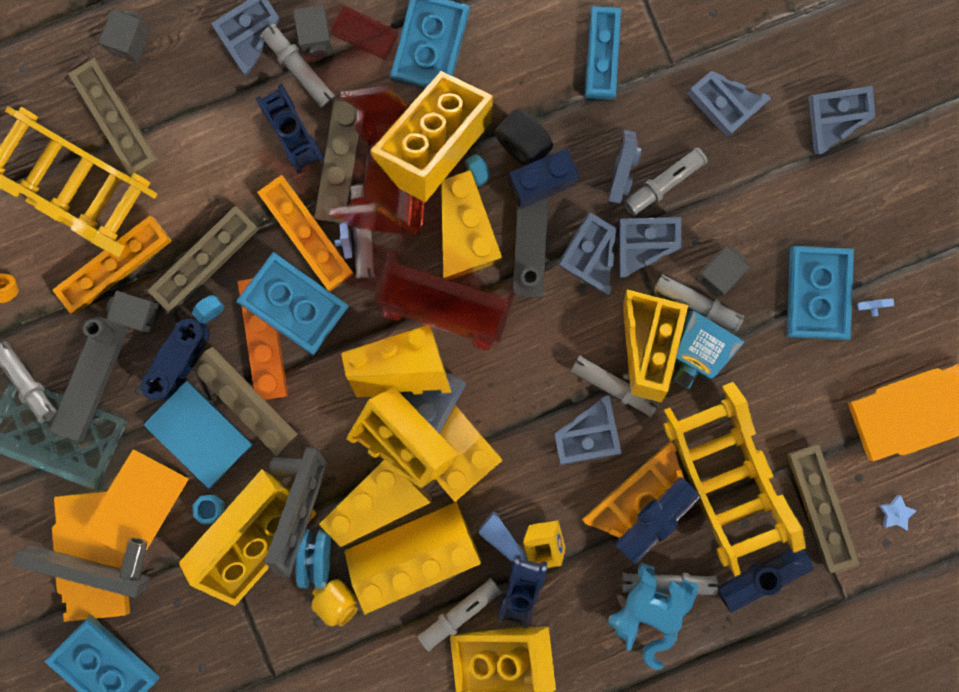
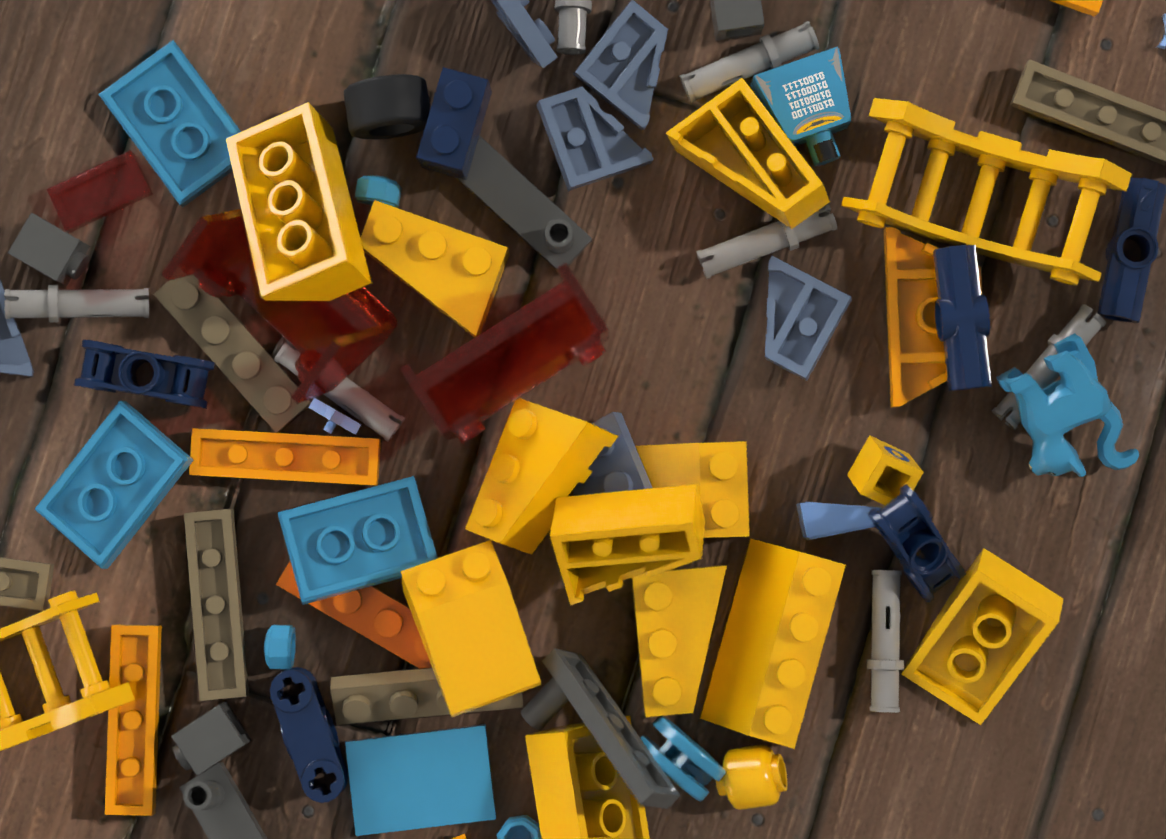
camera: 50 degrees left, 0 degrees up
(222, 159) = (114, 484): none -> dark azure tile
(291, 397) = (470, 628): none -> yellow slope

